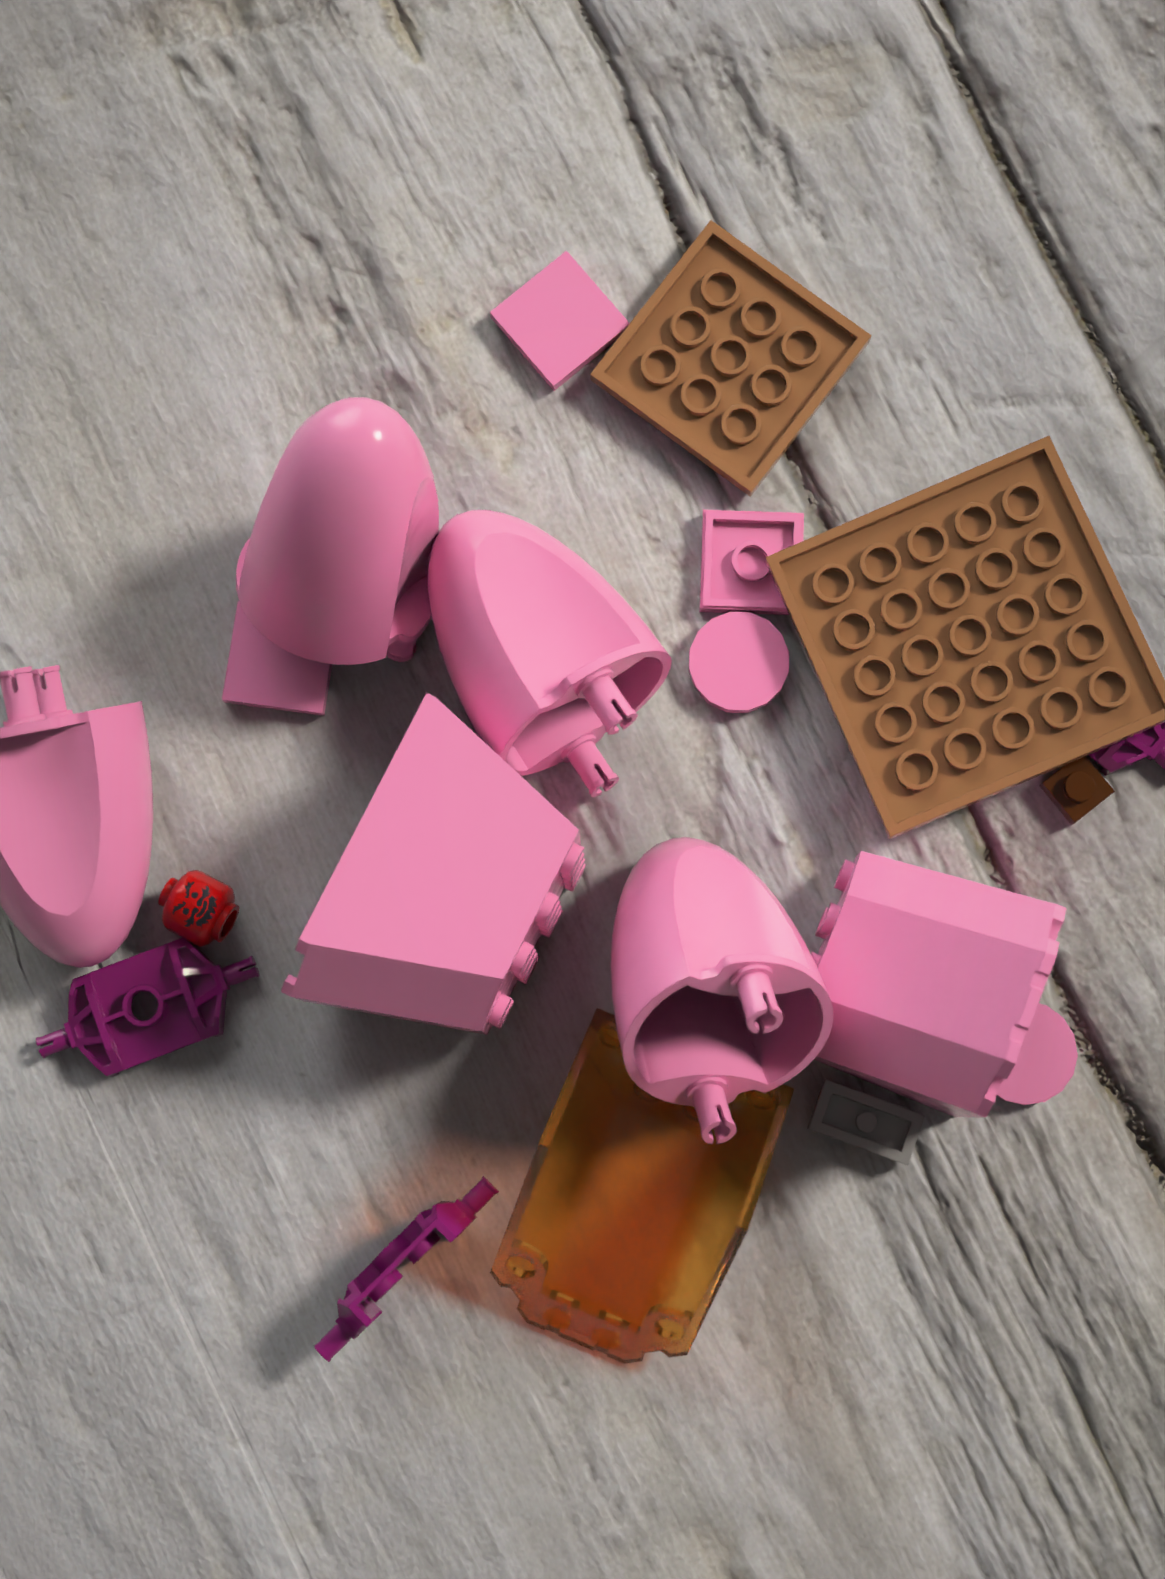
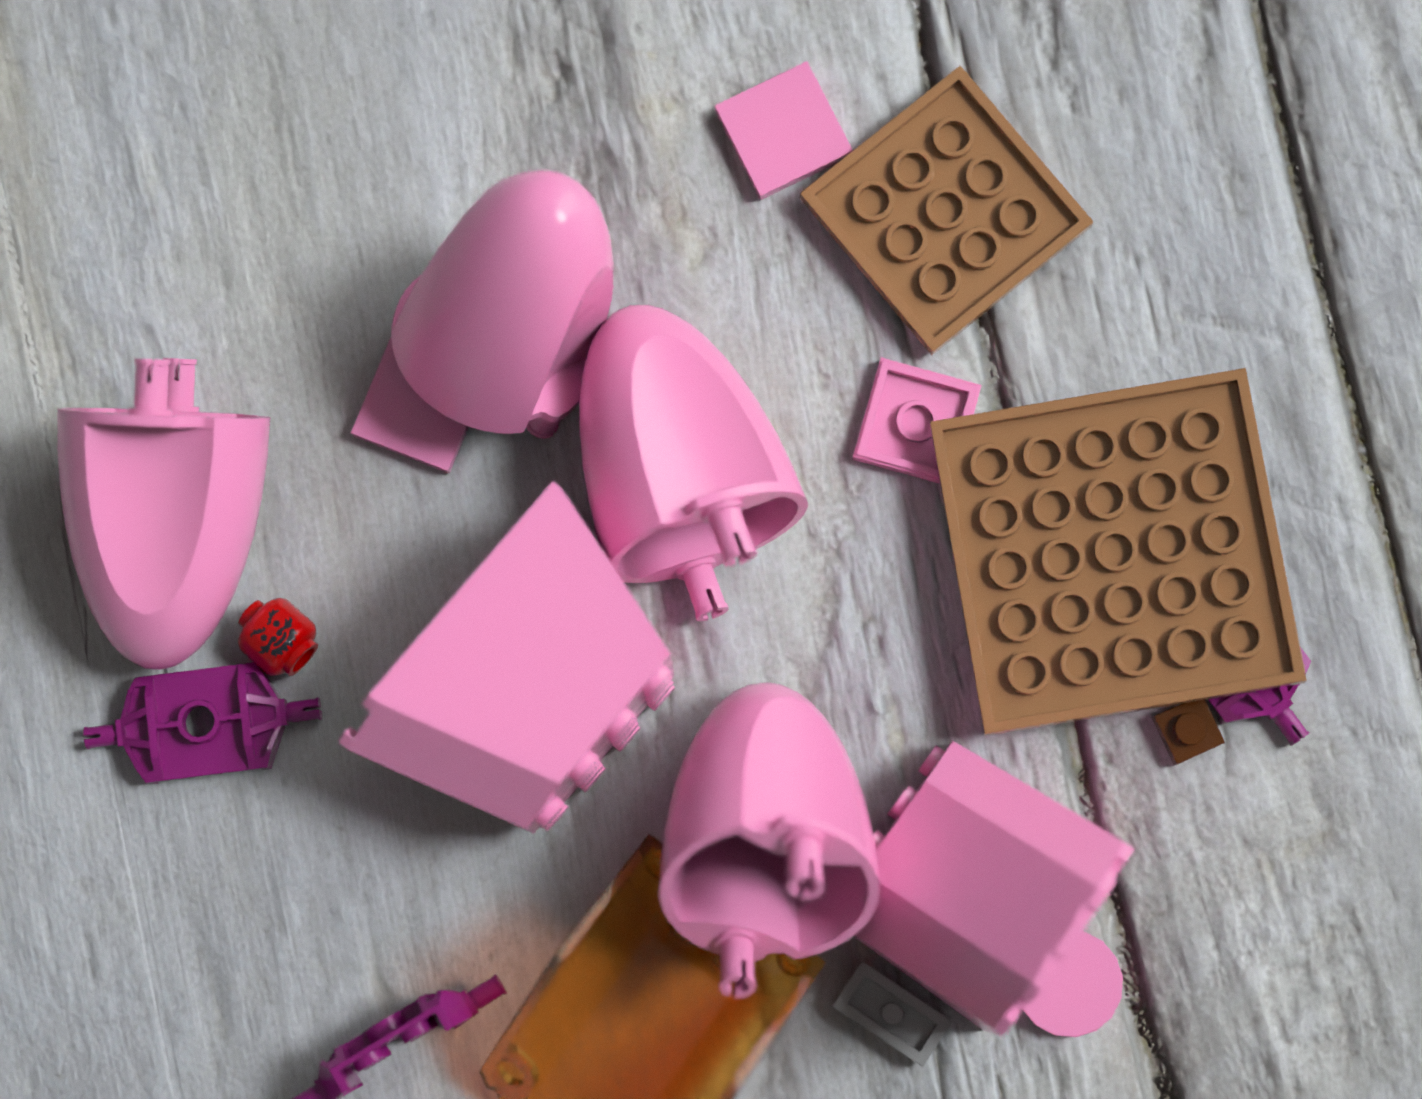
camera: 10 degrees right, 0 degrees up
(738, 662) = (878, 520): bright pink tile -> none

